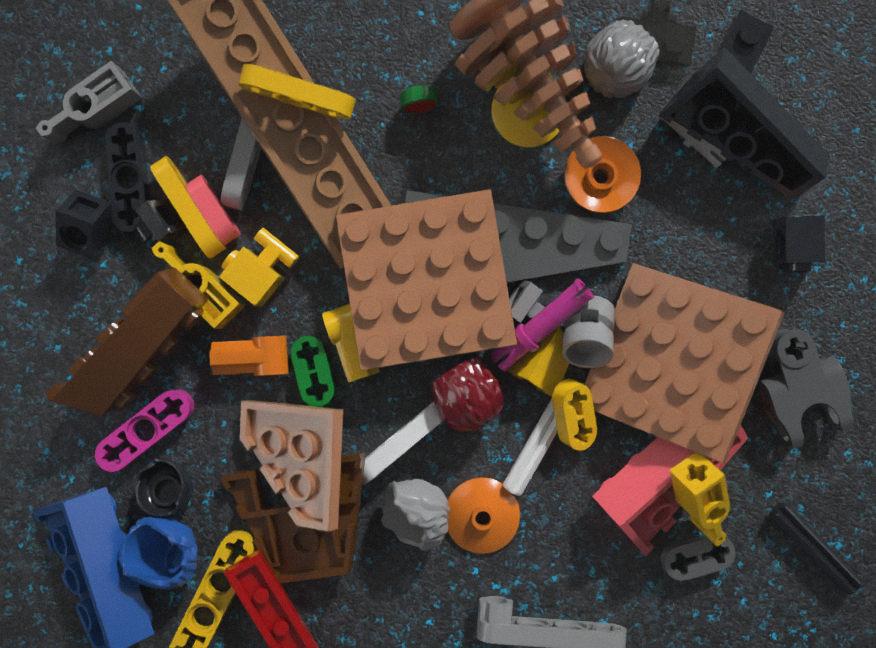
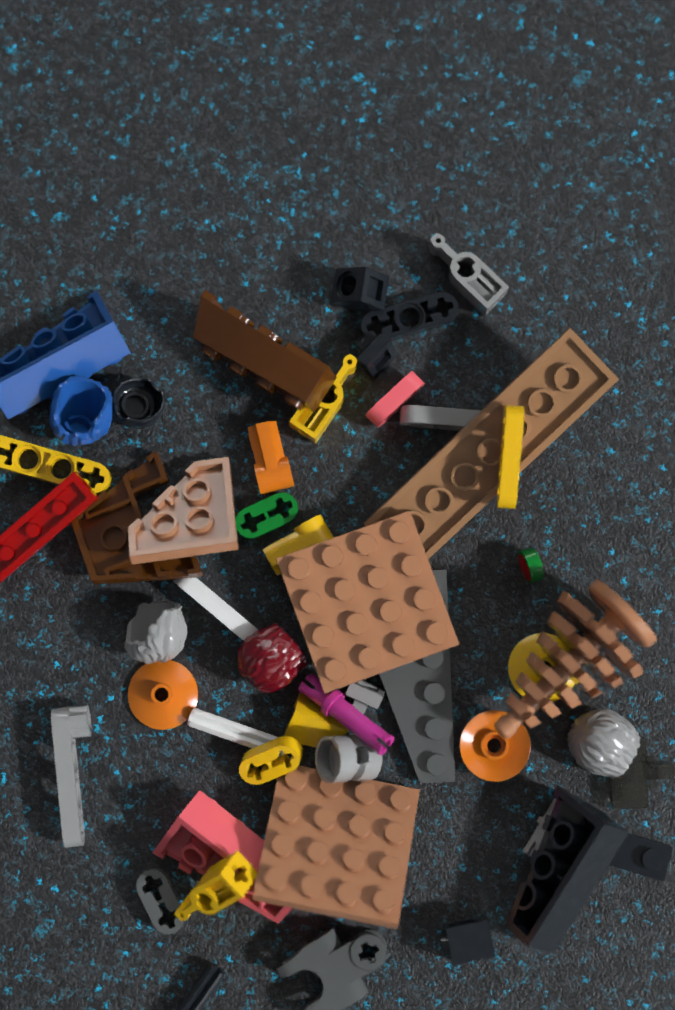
camera: 75 degrees right, 5 degrees down
(116, 438) = (161, 365): dark pink beam -> none
(174, 187) = (408, 362): yellow beam -> none
(253, 274) = (343, 447): yellow brick -> none

